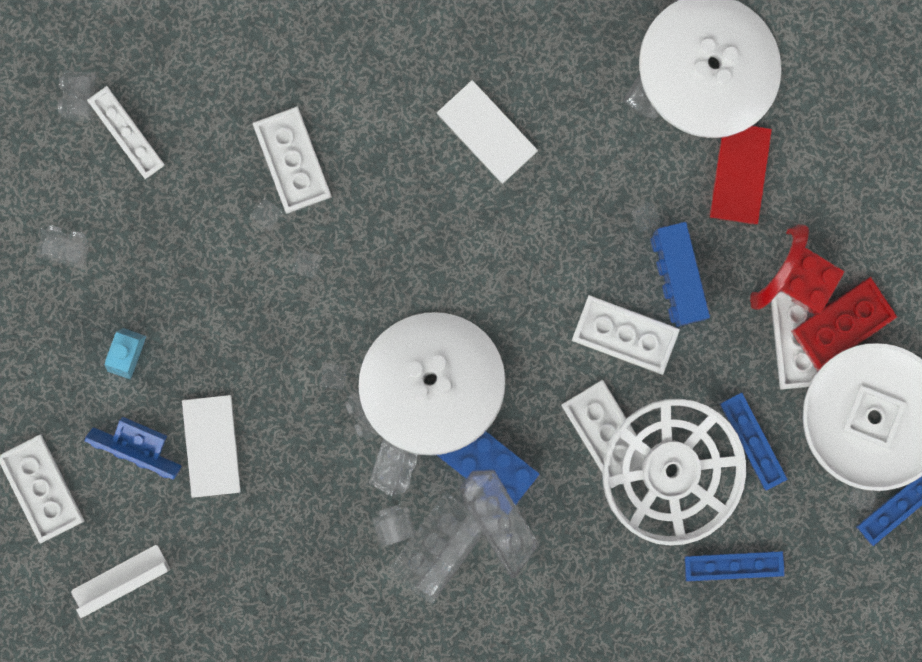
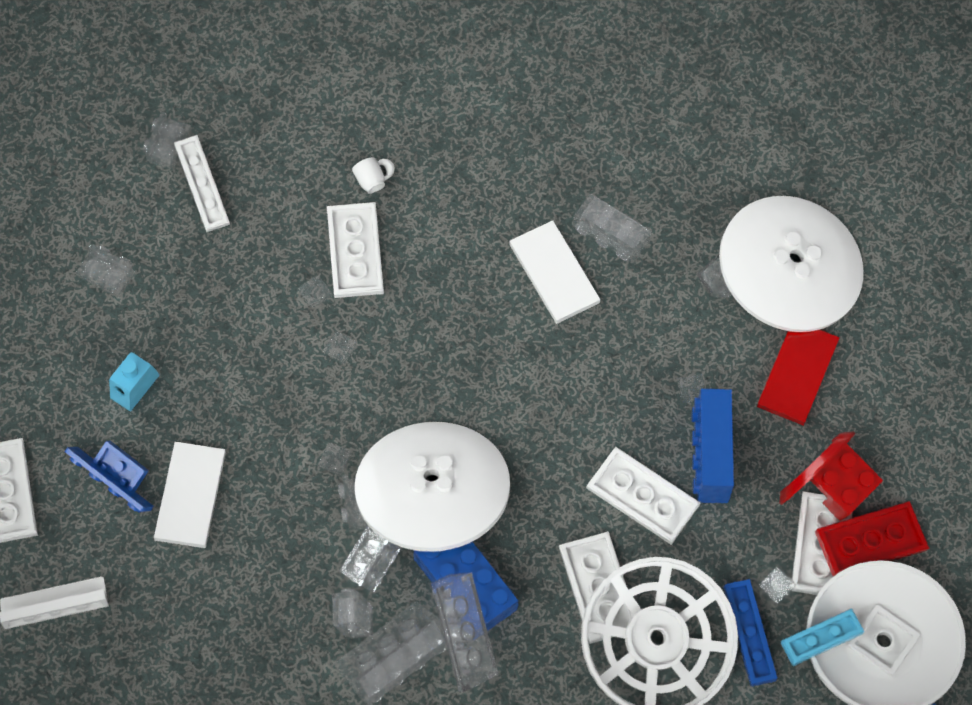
camera: 15 degrees right, 20 degrees down
(284, 79) = (370, 173): none -> white piece
(530, 75) = (611, 228): none -> clear brick
(768, 390) = (777, 585): none -> clear tile
(820, 434) = (822, 637): none -> medium azure tile

